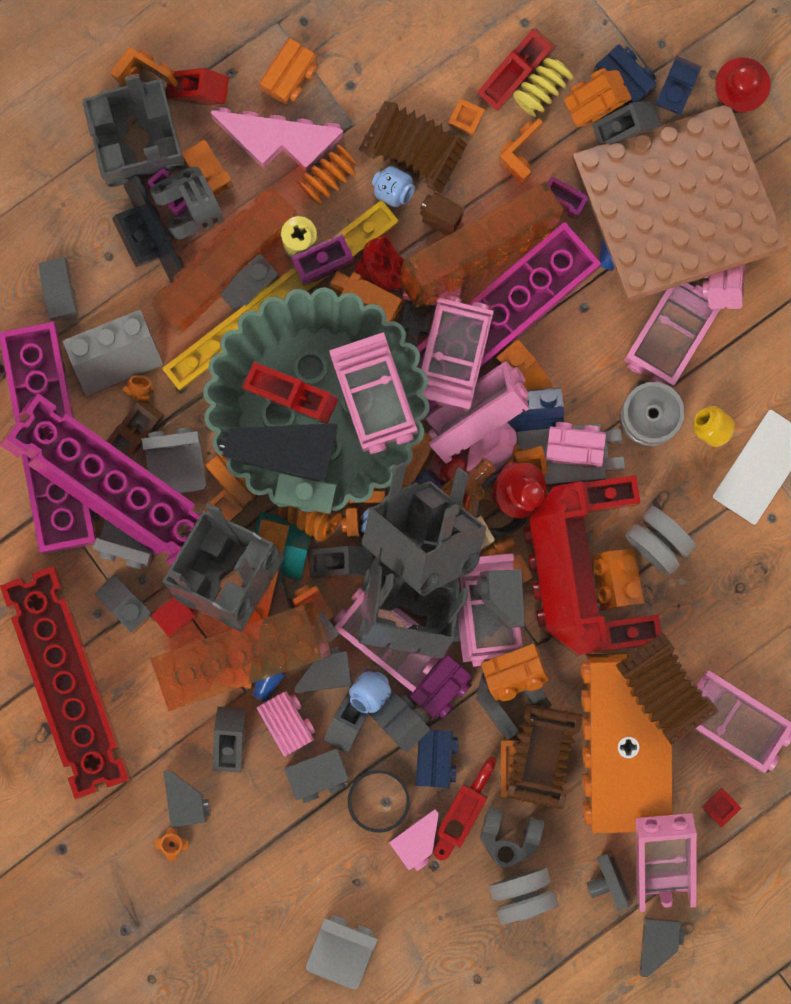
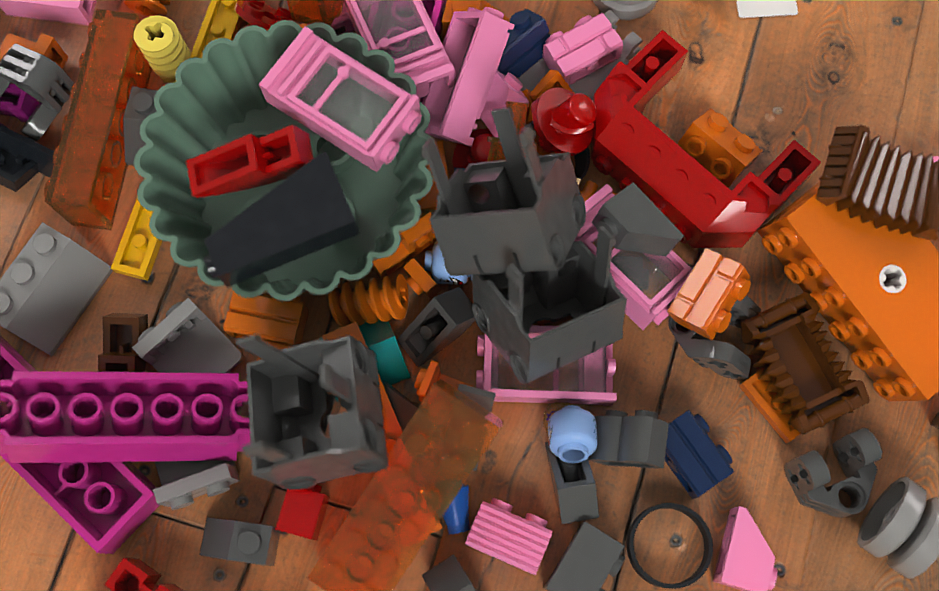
camera: 35 degrees left, 10 degrees down
(138, 388) = (99, 305): orange plate -> none
(305, 493) = (345, 257): sand green tile -> none
(322, 260) = (196, 34): magenta brick -> none
(326, 673) = (511, 450): dark grey slope -> none
(441, 687) = (640, 374): magenta brick -> none
(464, 809) = (765, 481): red piece -> none
(661, 540) = (735, 74): light grey wheel -> none

